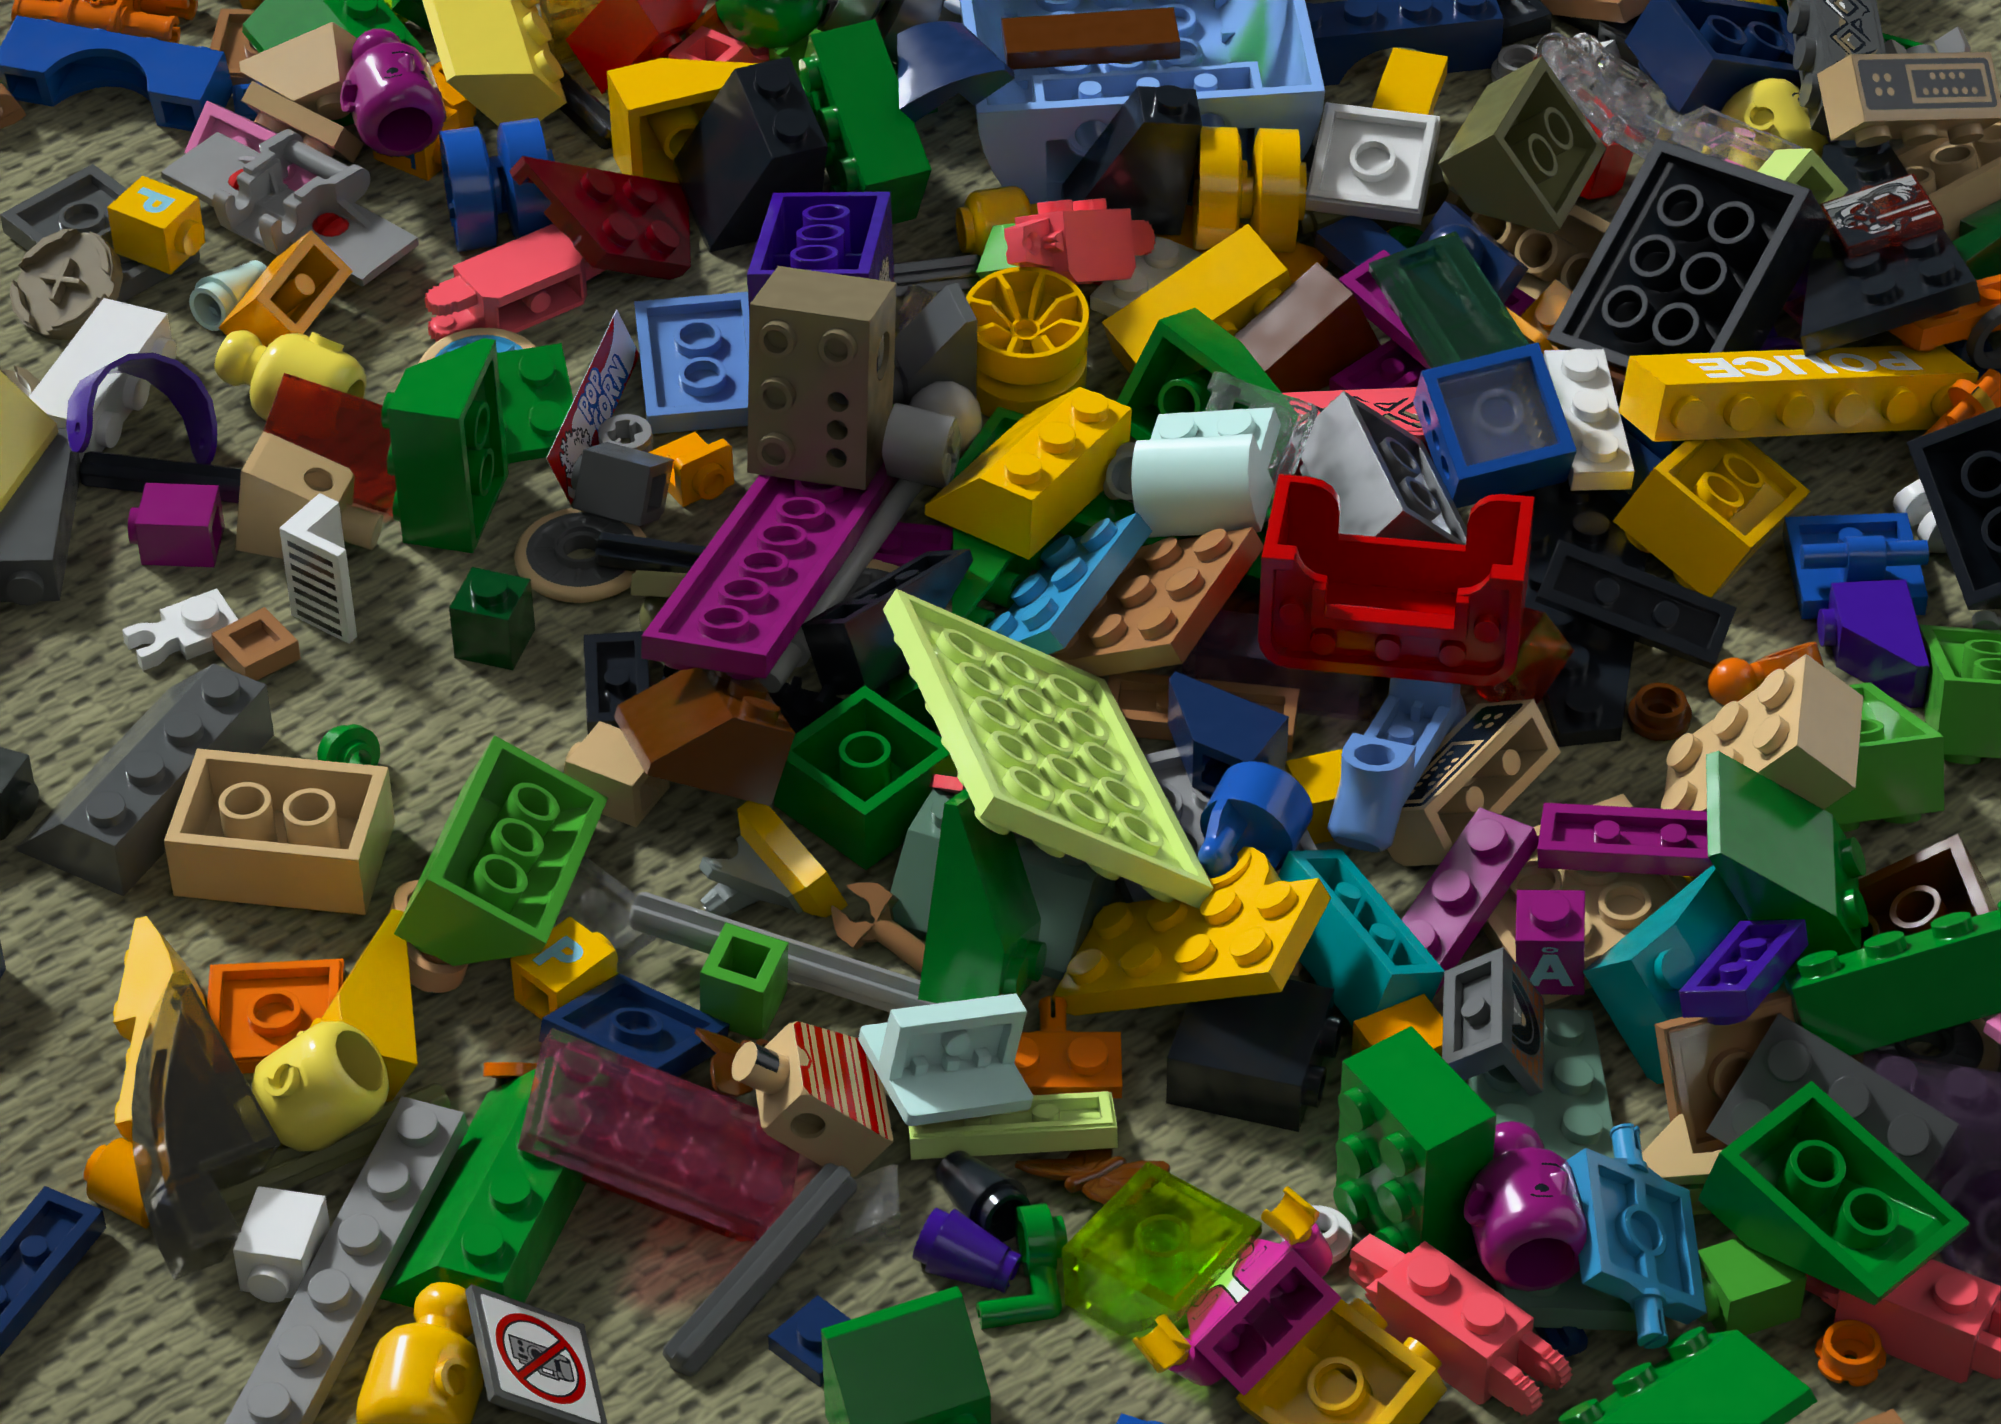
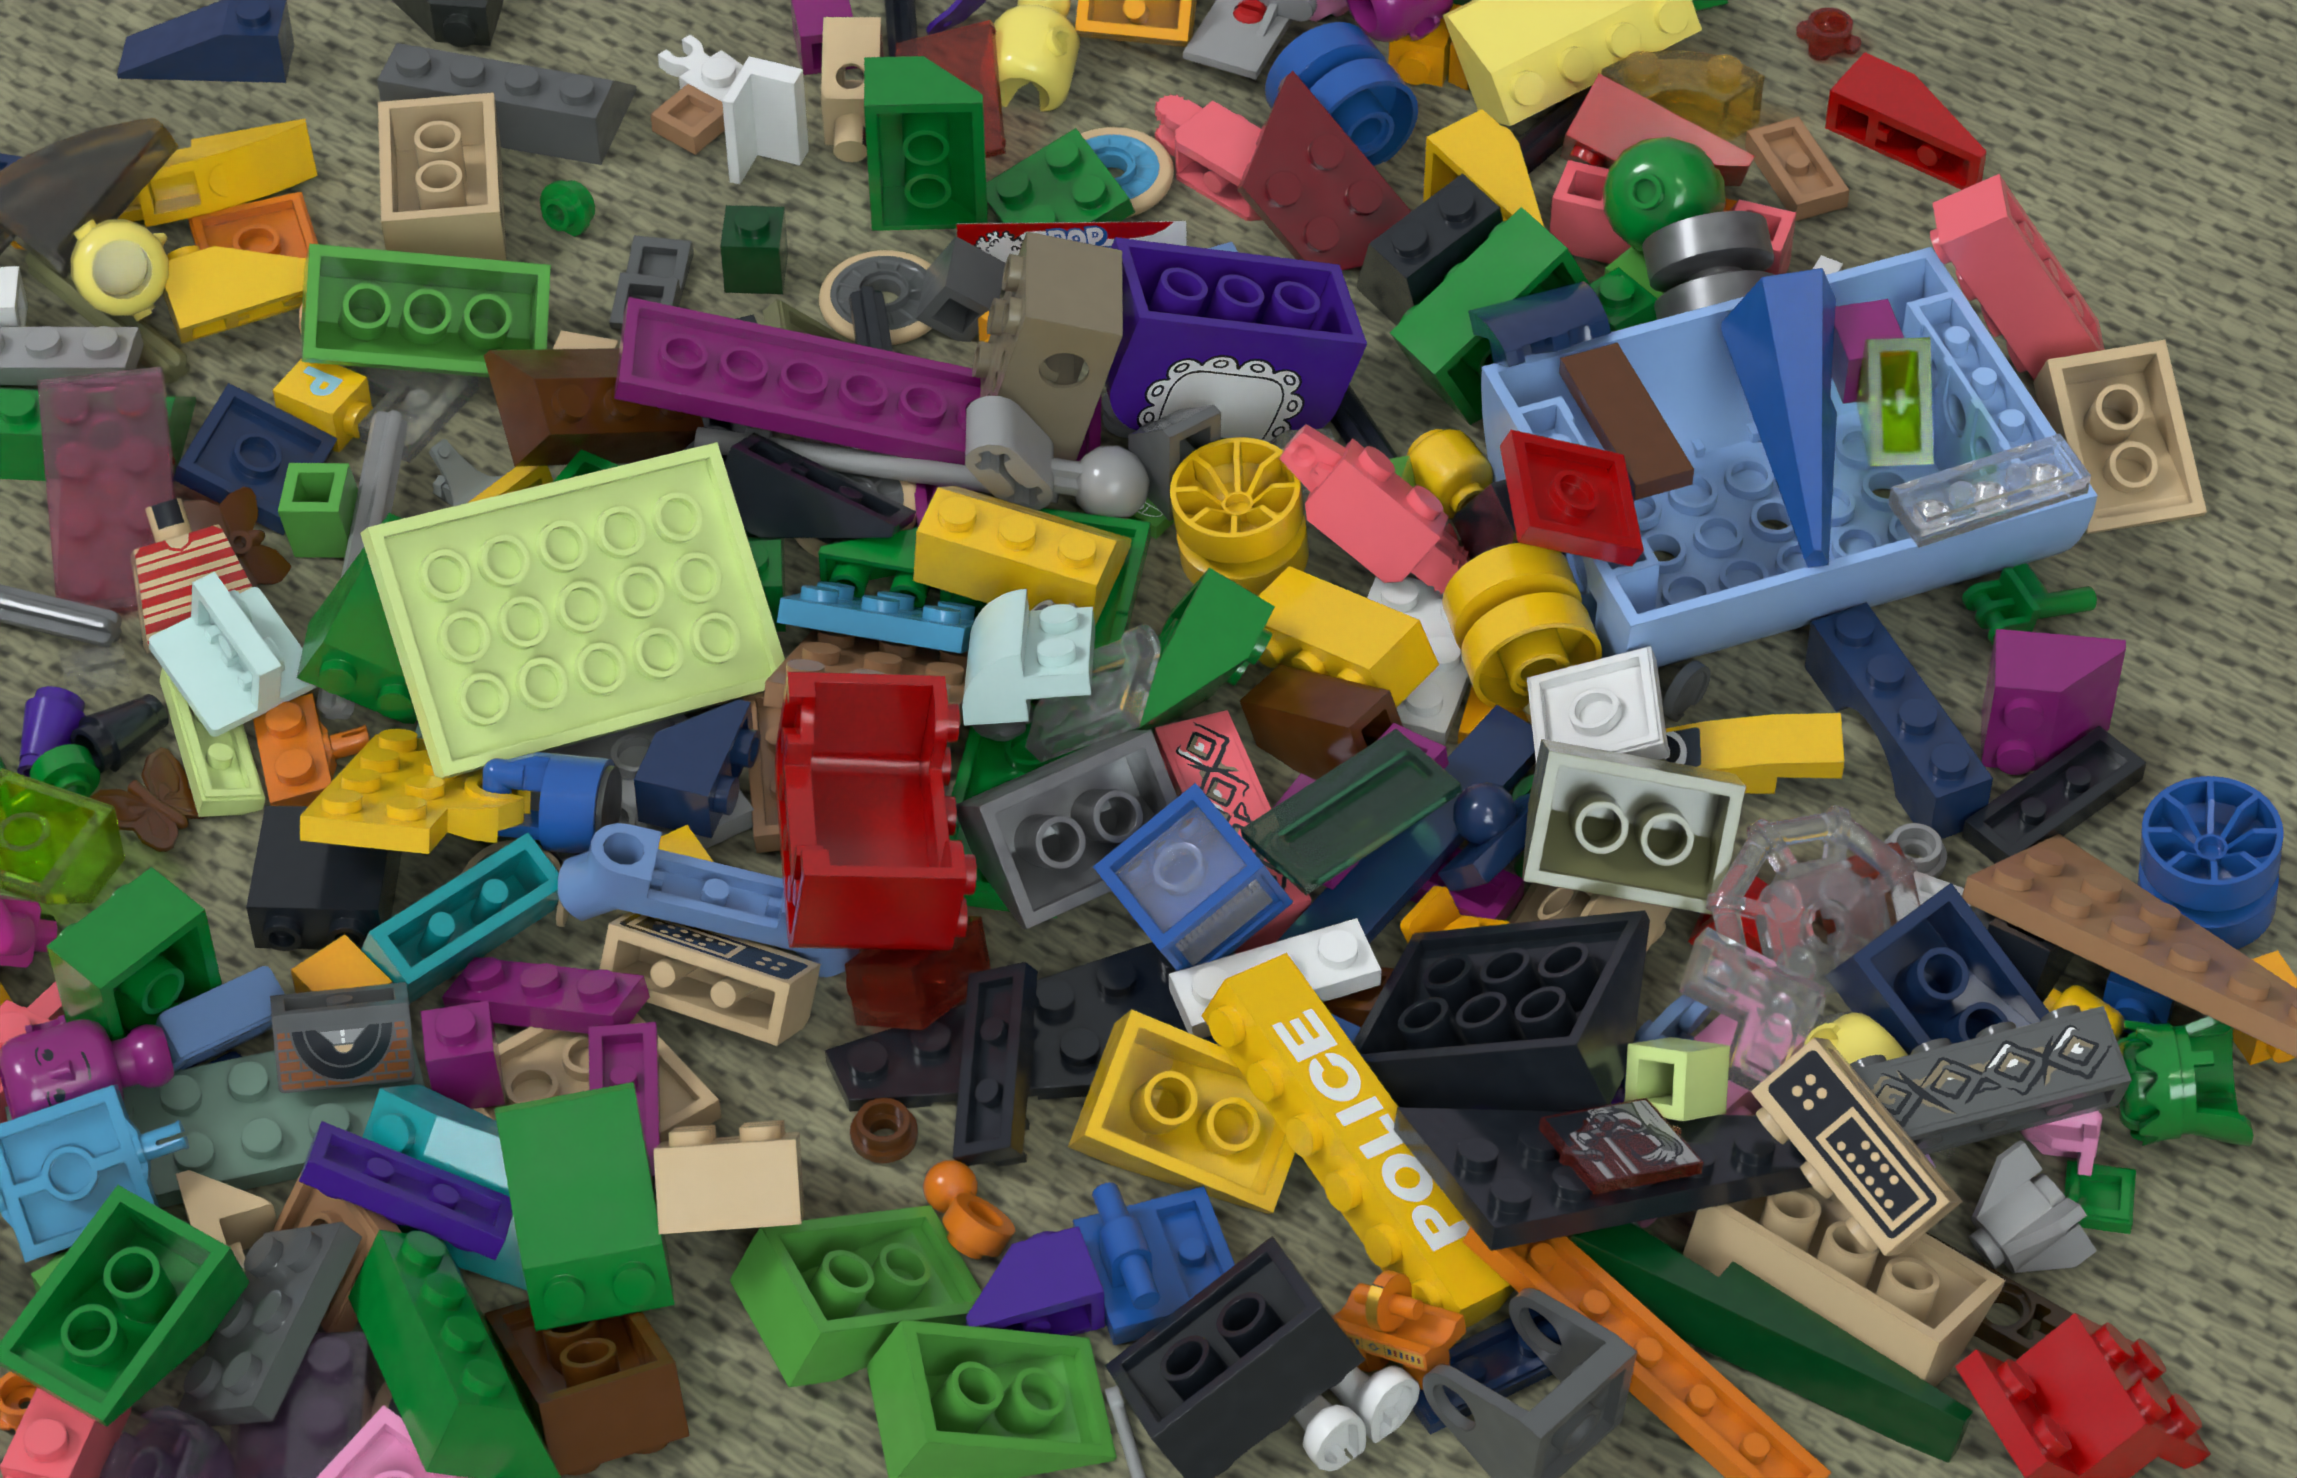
camera: 75 degrees right, 5 degrees up
(478, 713) = (653, 273): none -> dark grey slope
(507, 1069) = (202, 394): orange piece -> none
(1196, 69) = (1571, 498): none -> red plate

